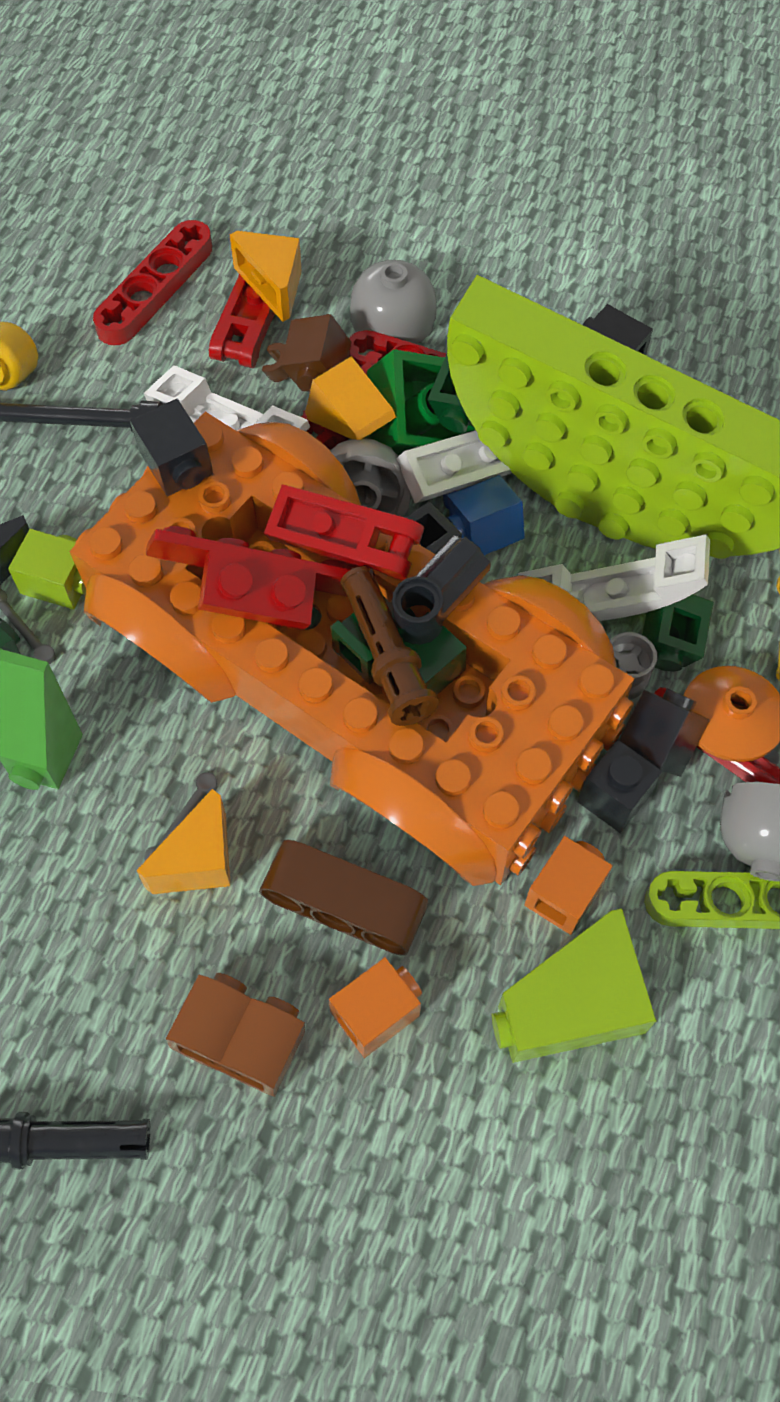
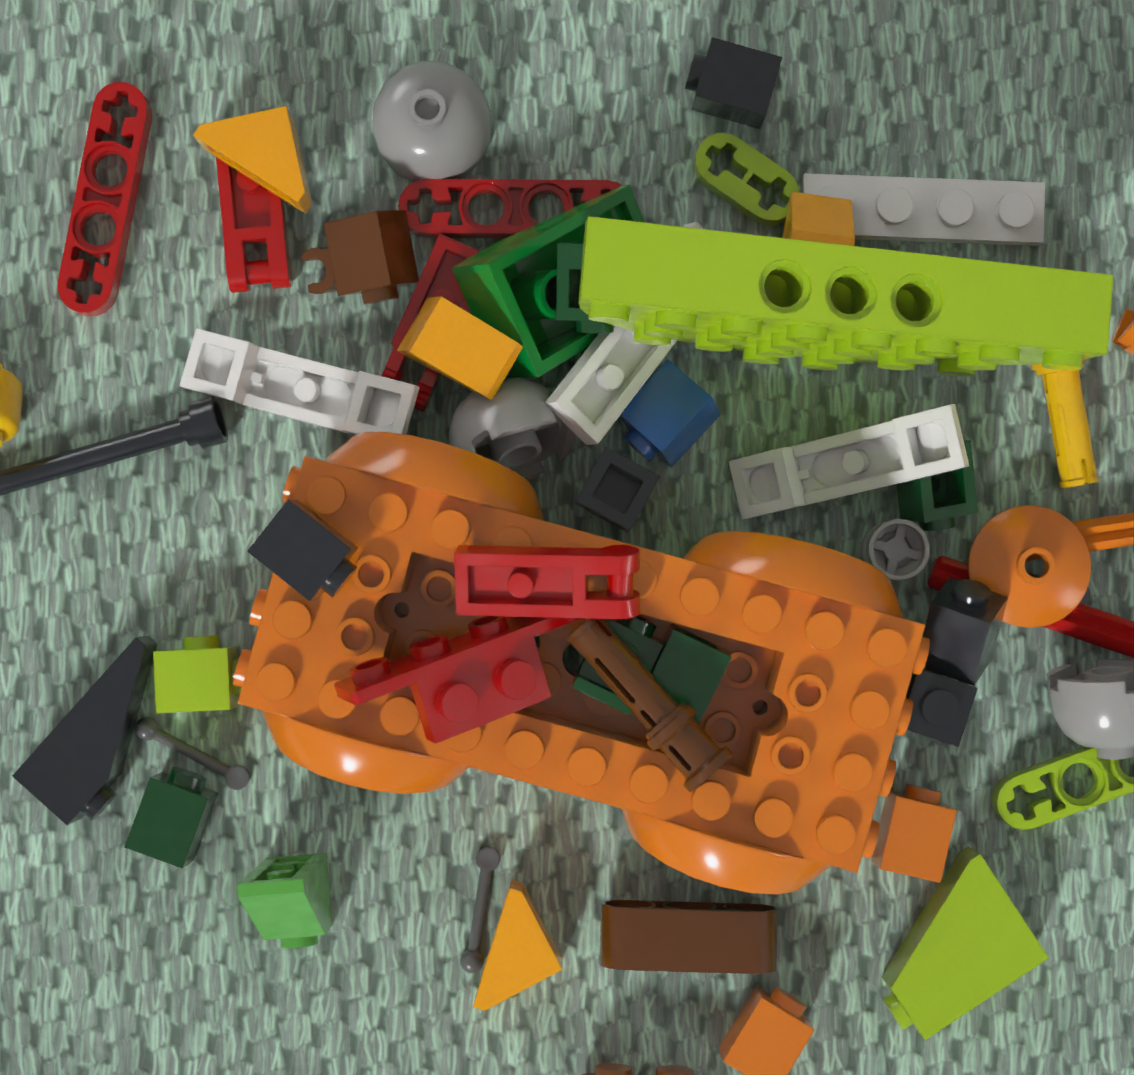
camera: 20 degrees left, 25 degrees up
(439, 587) = (684, 612): black piece -> none

